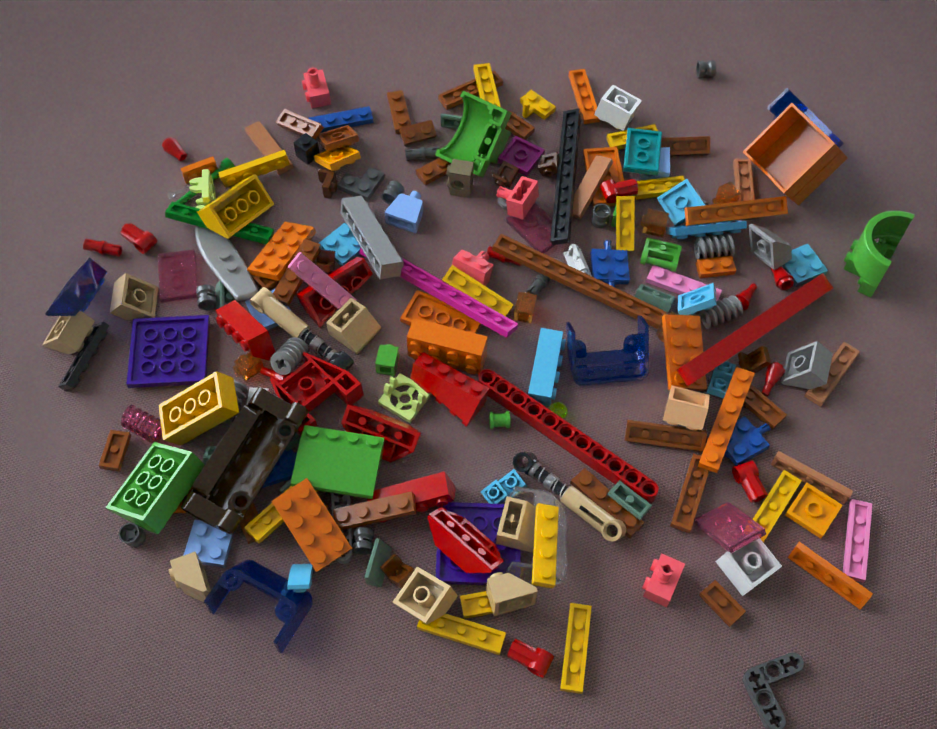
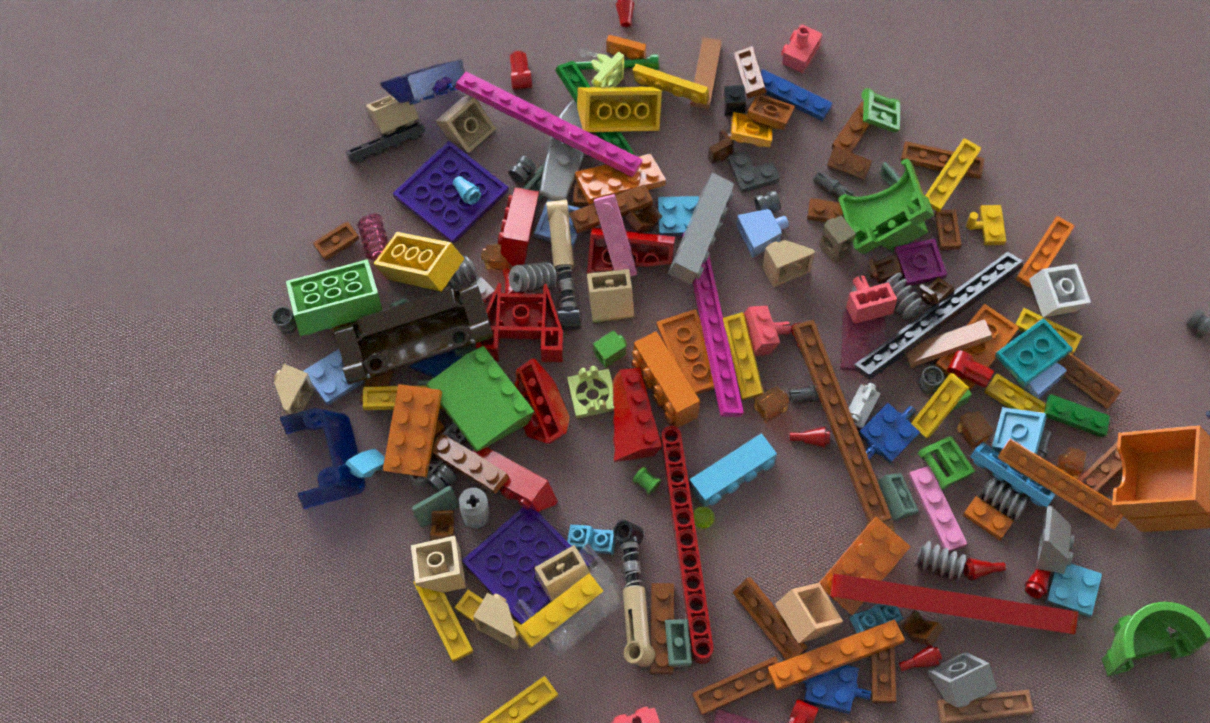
camera: 45 degrees right, 5 degrees up
(102, 247) = (485, 57): red pin -> none
(177, 275) = (513, 138): clear pink tile -> none
(182, 338) = (467, 190): none -> medium azure cone
(196, 251) = (549, 124): none -> dark pink plate
(405, 87) = (878, 115): none -> bright green plate
(409, 537) = (474, 508): none -> light grey piece
(444, 215) = (786, 261): none -> tan slope
(463, 542) = (509, 550): red wedge -> none
(534, 659) = (472, 689): red piece -> none
(544, 183) = (905, 301): none -> light grey piece
(573, 303) = (816, 437): none -> red cone
(613, 365) = (788, 516): clear blue windscreen -> none
(696, 300) = (926, 531): medium azure plate -> none
(700, 169) = (1076, 416): none -> green plate

